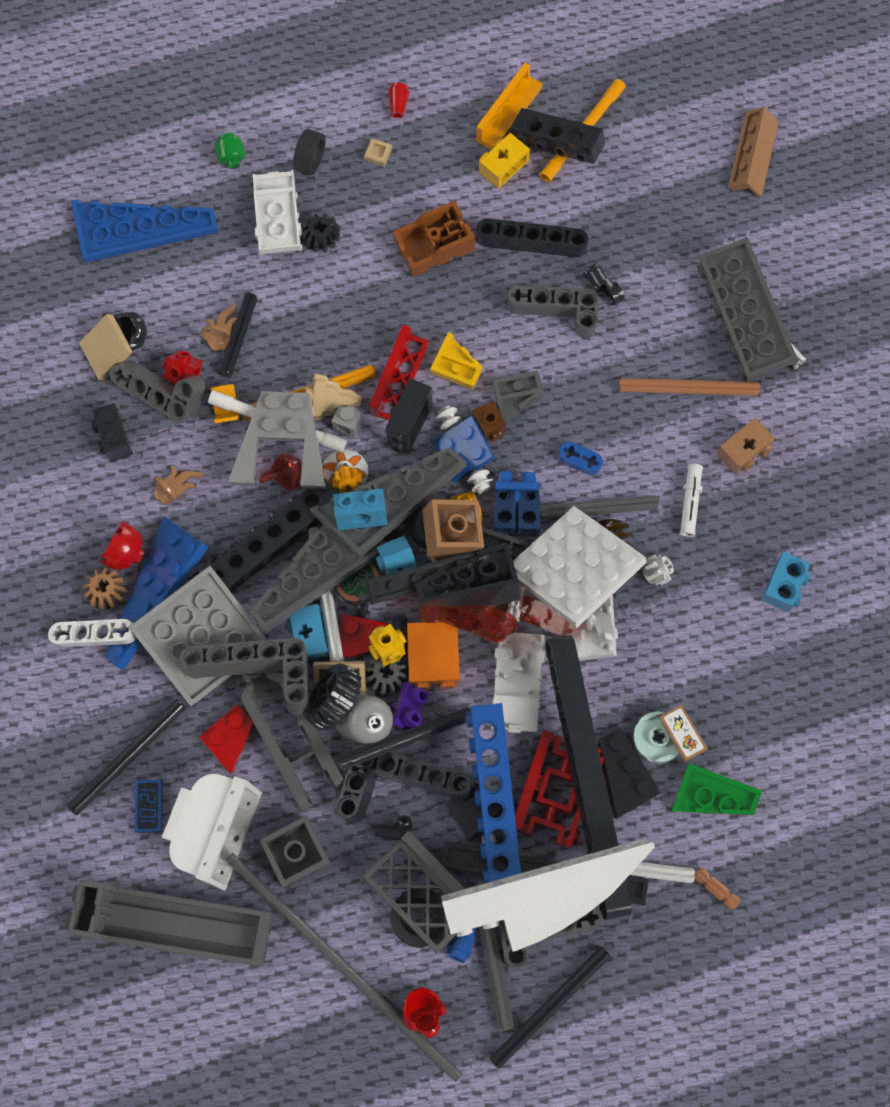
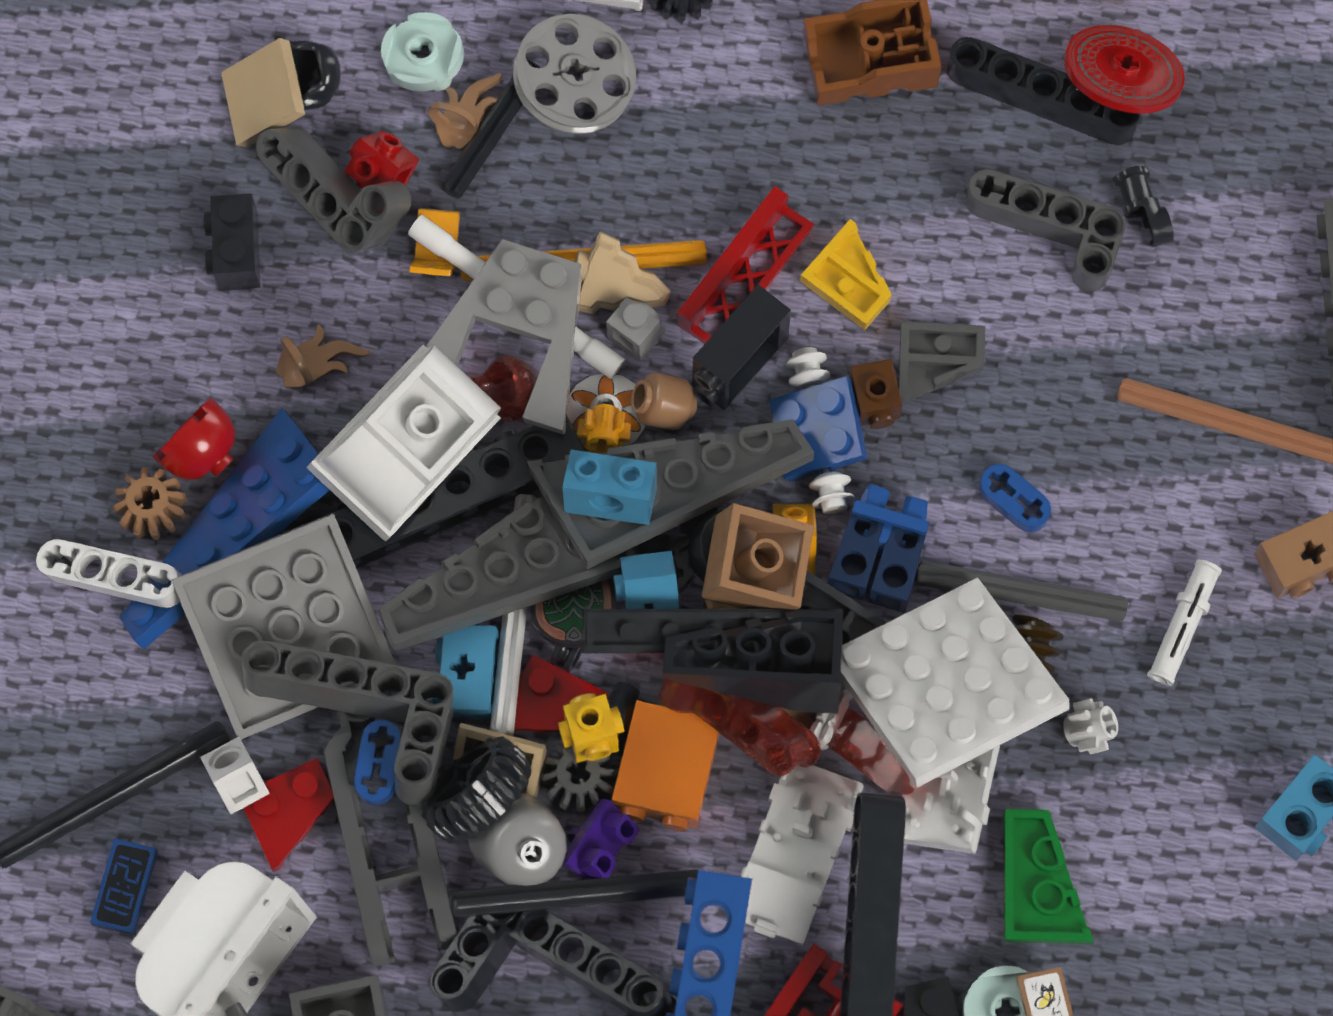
camera: 15 degrees right, 0 degrees up
(194, 313) = (422, 73): none -> light aqua plate
(194, 726) = (234, 775): none -> white brick
(239, 514) = (406, 440): none -> white container
(267, 696) = (367, 762): none -> blue beam
(272, 301) = (584, 60): none -> light grey wedge
(375, 456) = (663, 401): none -> medium nougat head
(572, 214) = (1124, 69): none -> red piece
(653, 663) = (1037, 885): none -> green wing

